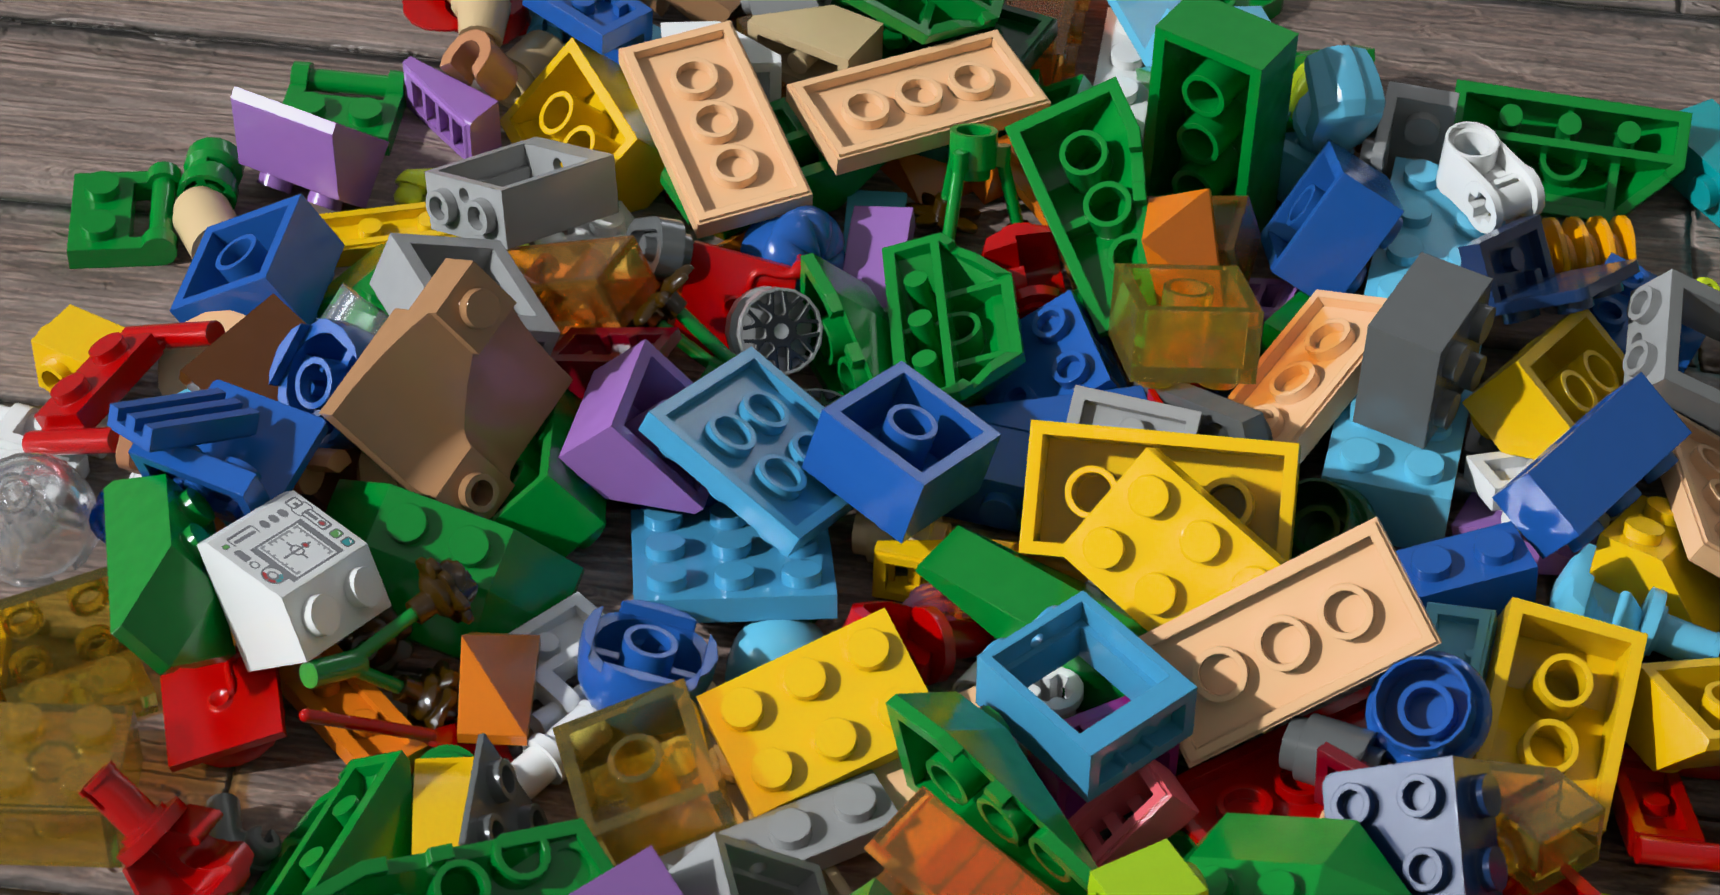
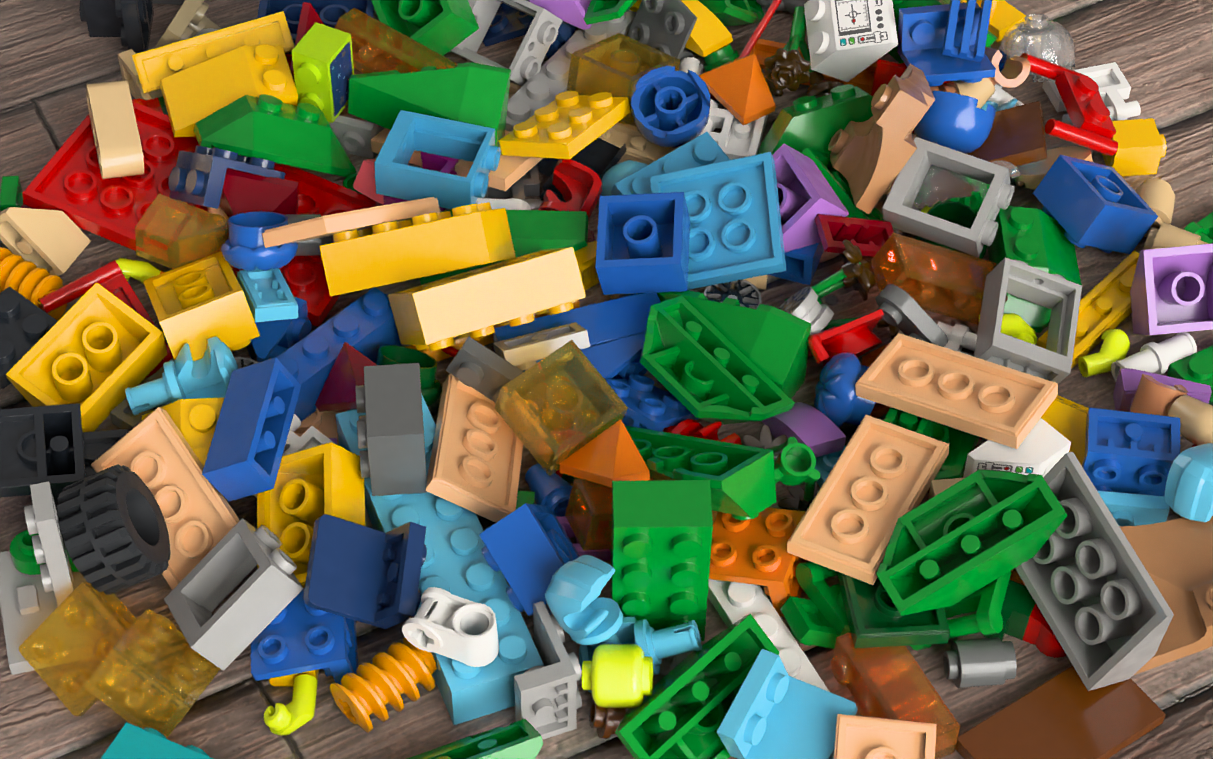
camera: 145 degrees right, 5 degrees up
(156, 281) = (1160, 199): none -> tan brick
(414, 151) = (1158, 356): none -> white pin
(1403, 498) = (341, 384): none -> dark red slope

